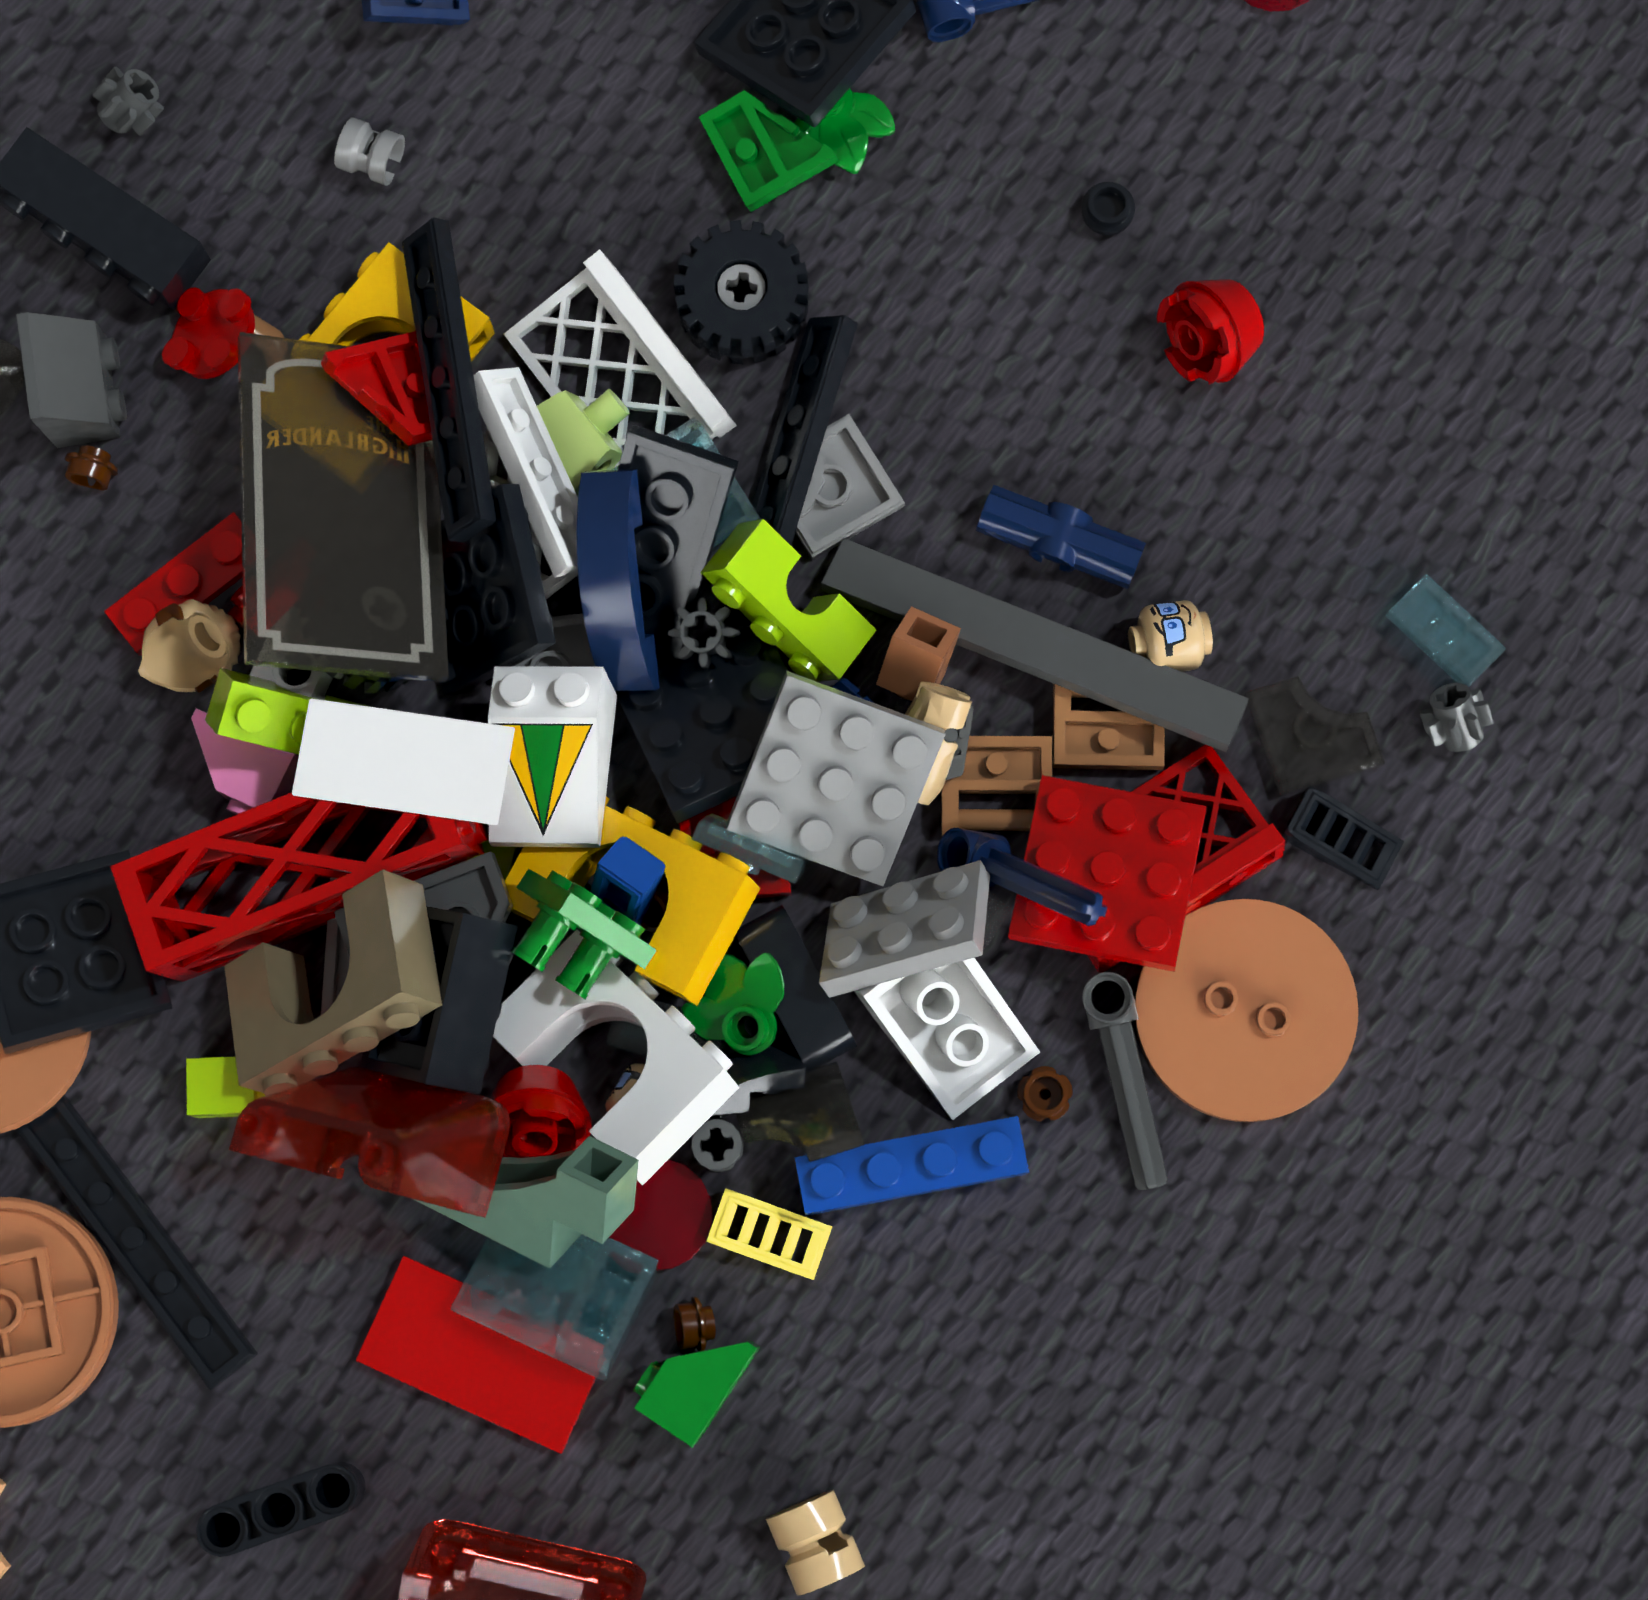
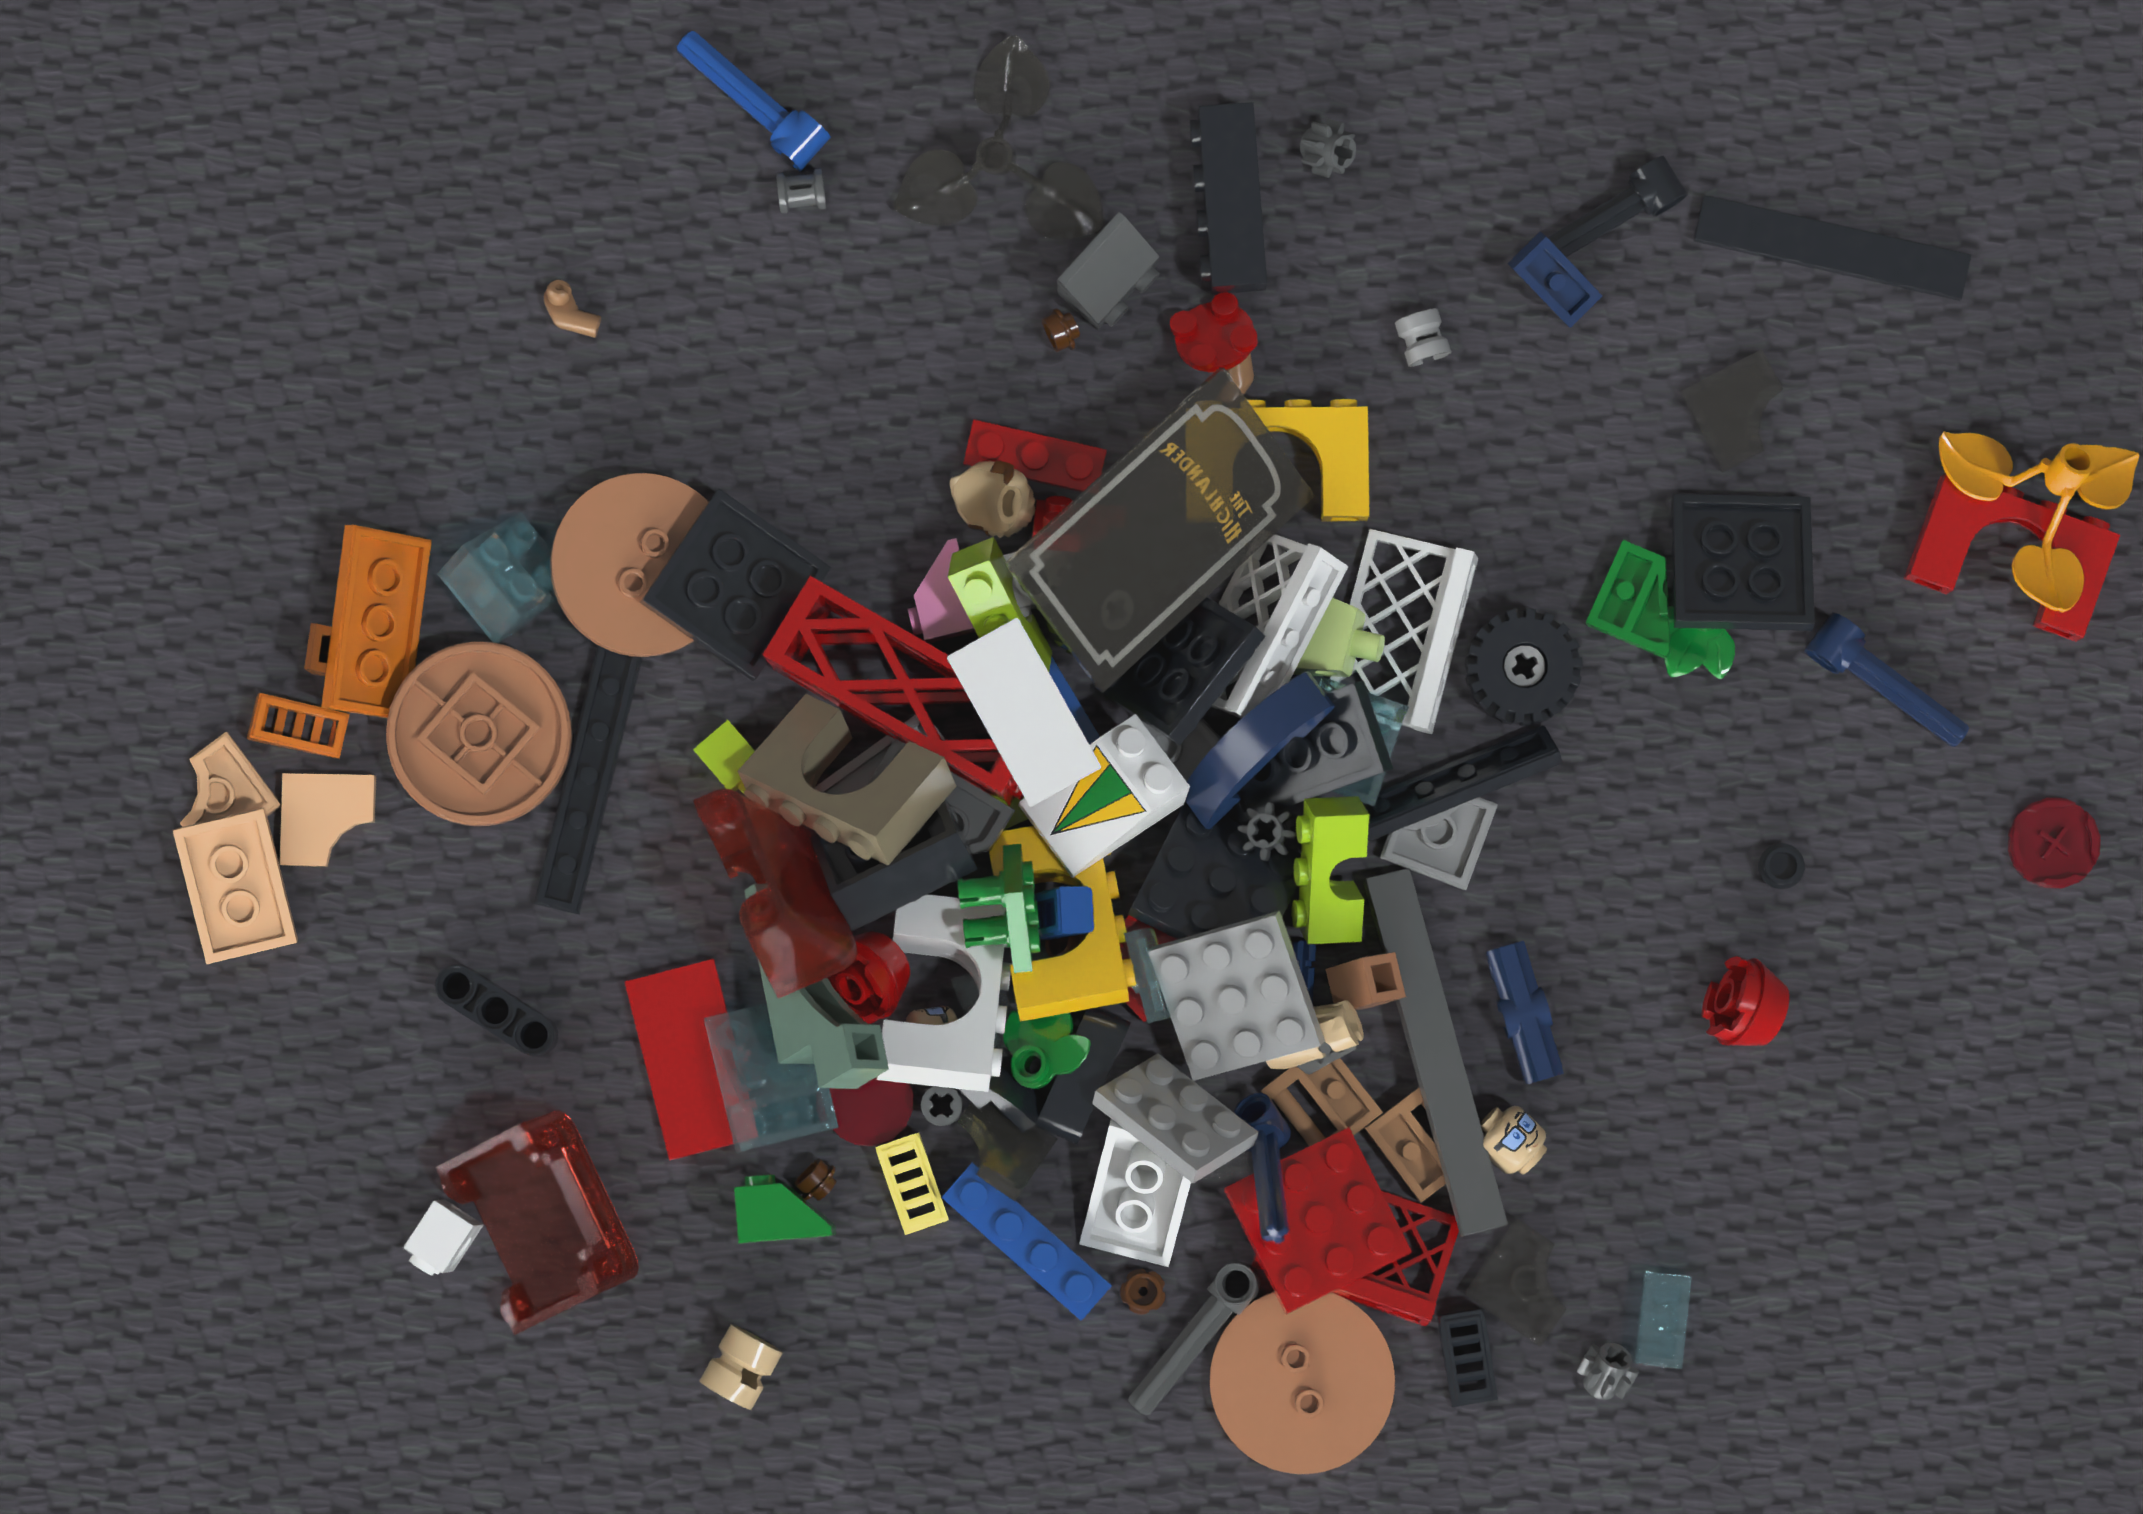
camera: 50 degrees right, 5 degrees up
(387, 382) = (1273, 496): red wing -> none
(448, 381) = (1301, 529): black tile -> none

